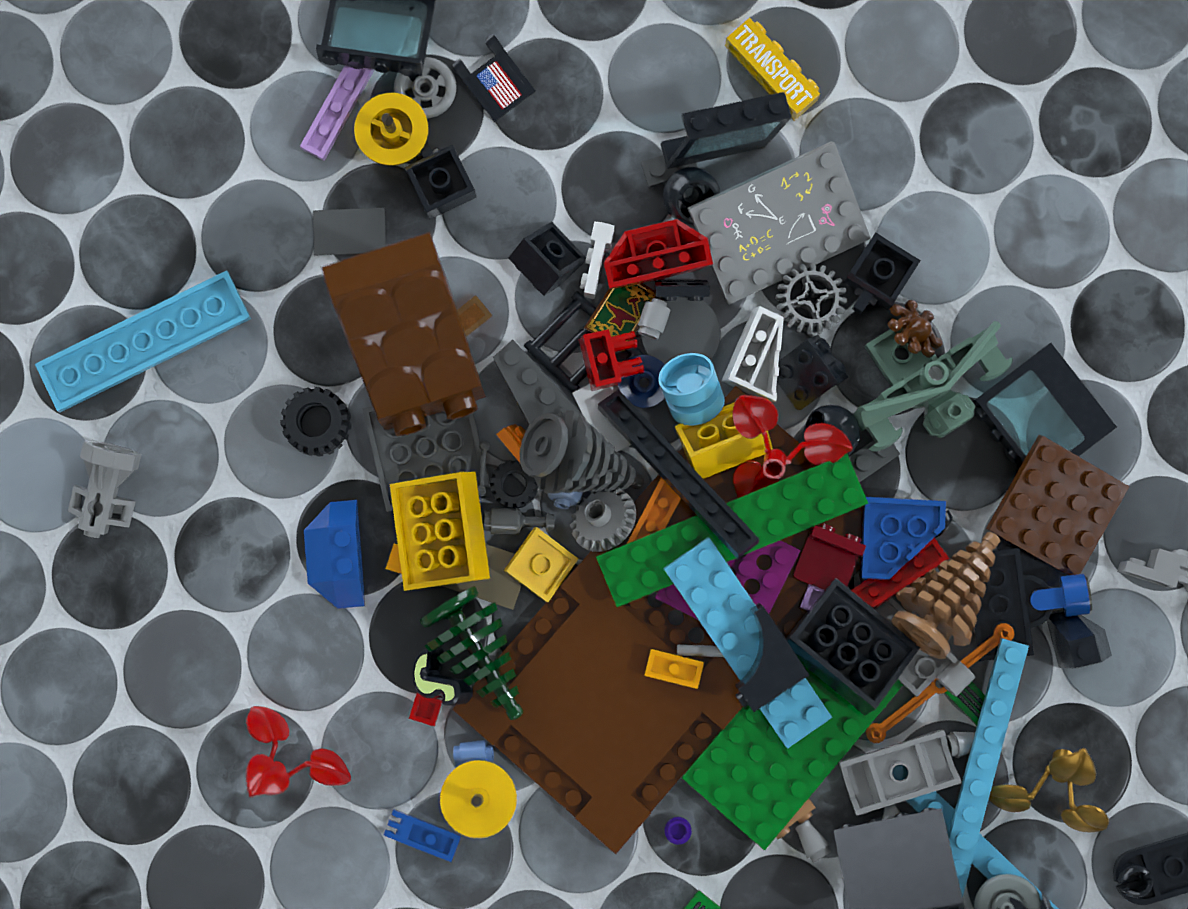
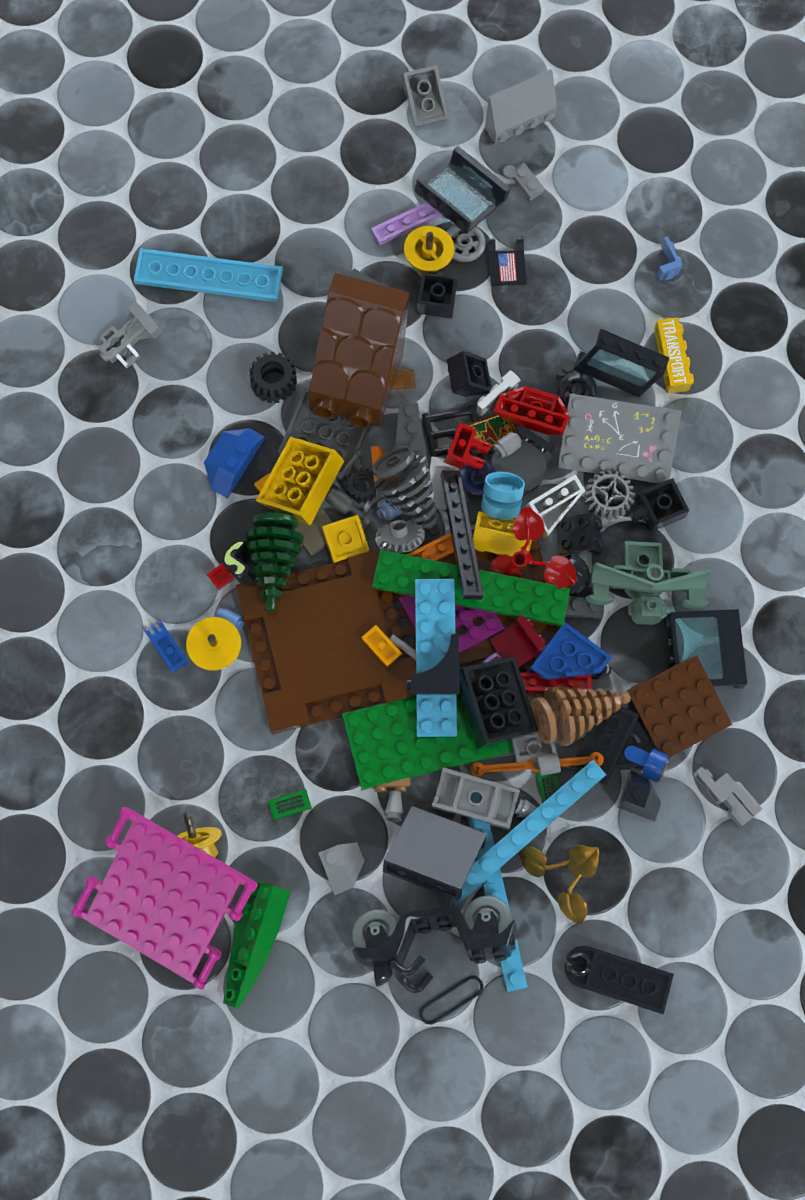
camera: 30 degrees right, 10 degrees down
(270, 776) = (101, 539): red plant -> none
(678, 830) = (318, 746): dark purple plate -> none
(915, 329) = (660, 548): reddish brown animal -> none

